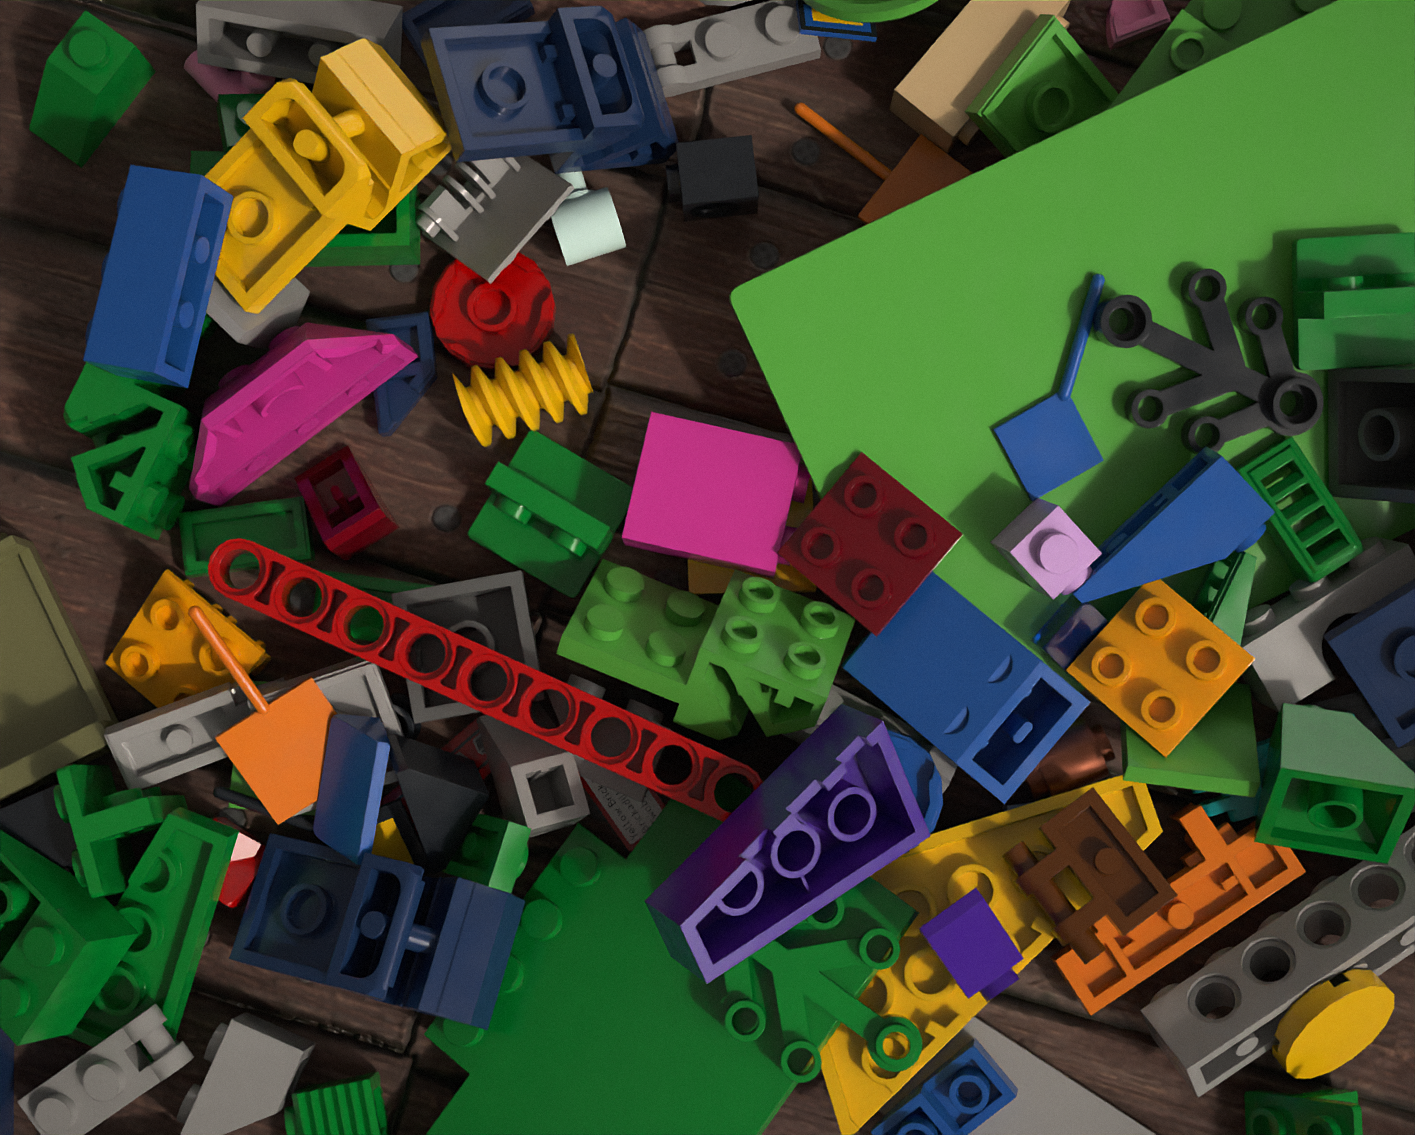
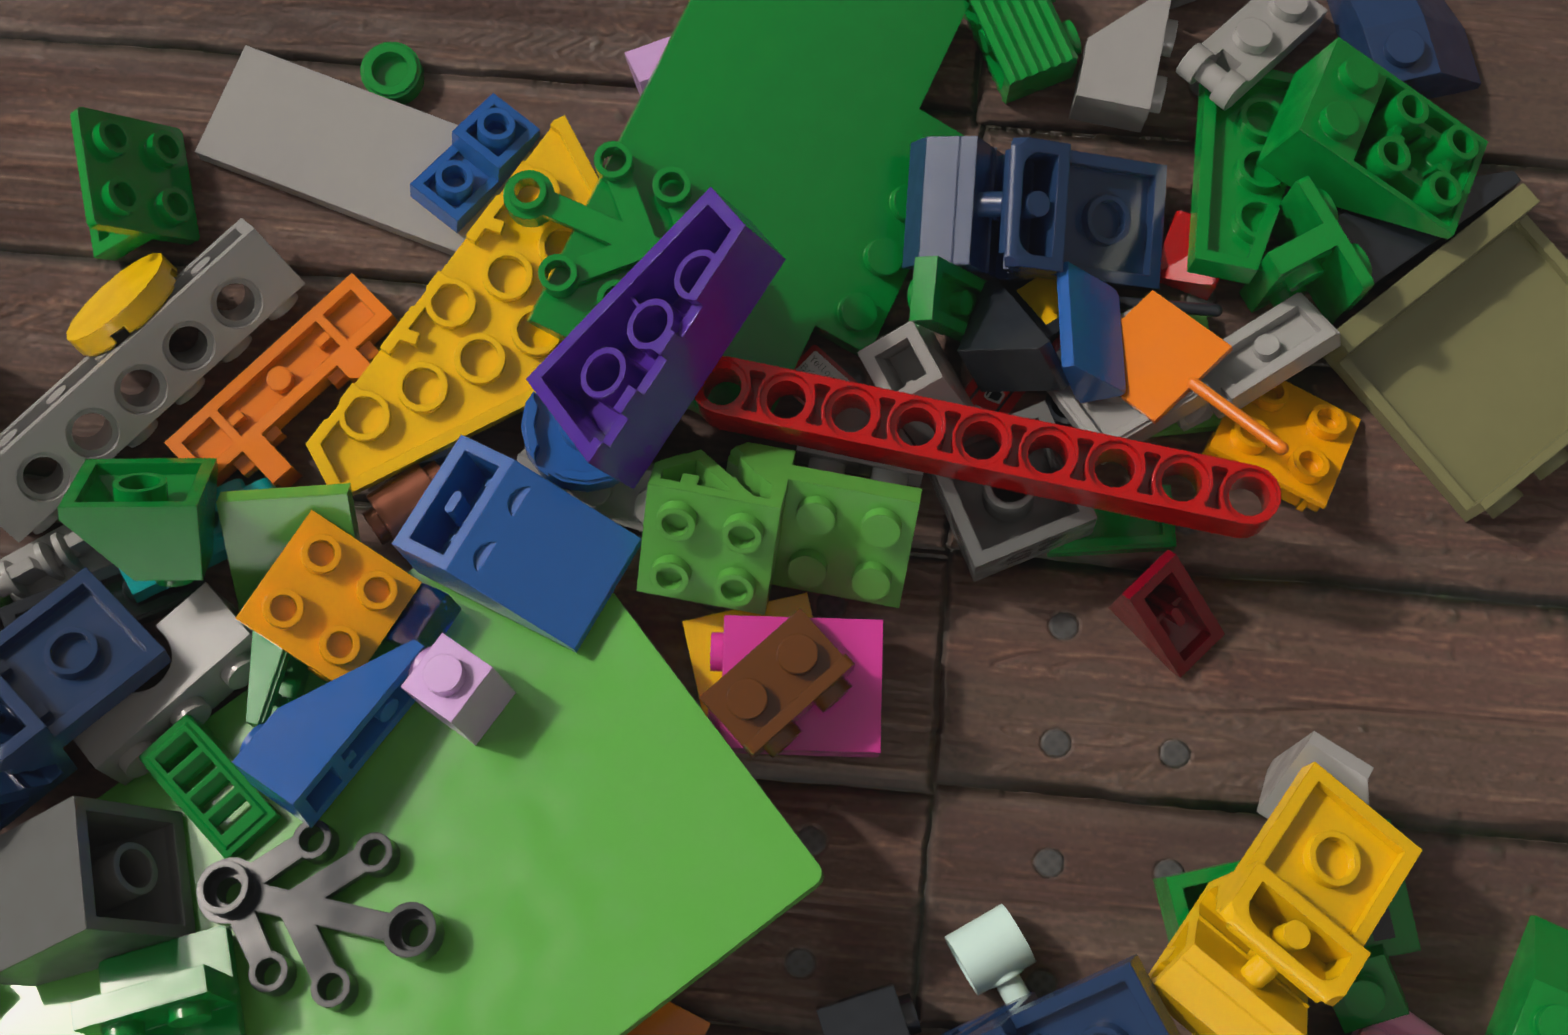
camera: 170 degrees right, 5 degrees down
(140, 446) = (1373, 583): green piece -> none
(158, 276) = (1411, 771): blue brick -> none
(275, 524) = (1257, 565): green tile -> none
(286, 400) = (1253, 702): dark pink wedge -> none
(405, 389) = (1147, 769): dark blue tile -> none
(492, 211) = (1087, 930): light grey hinge -> none
(493, 319) = (1067, 846): red tile -> none
(525, 391) = (1014, 758): yellow piece -> none
(551, 513) = (959, 646): green bracket -> none
(734, 486) = (778, 685): none -> reddish brown bracket
(869, 544) = (633, 656): dark red hinge -> none
(973, 946) = (472, 294): dark purple slope -> none
(1050, 439) = (468, 805): blue piece -> none
(1107, 865) = (355, 398): reddish brown plate -> none

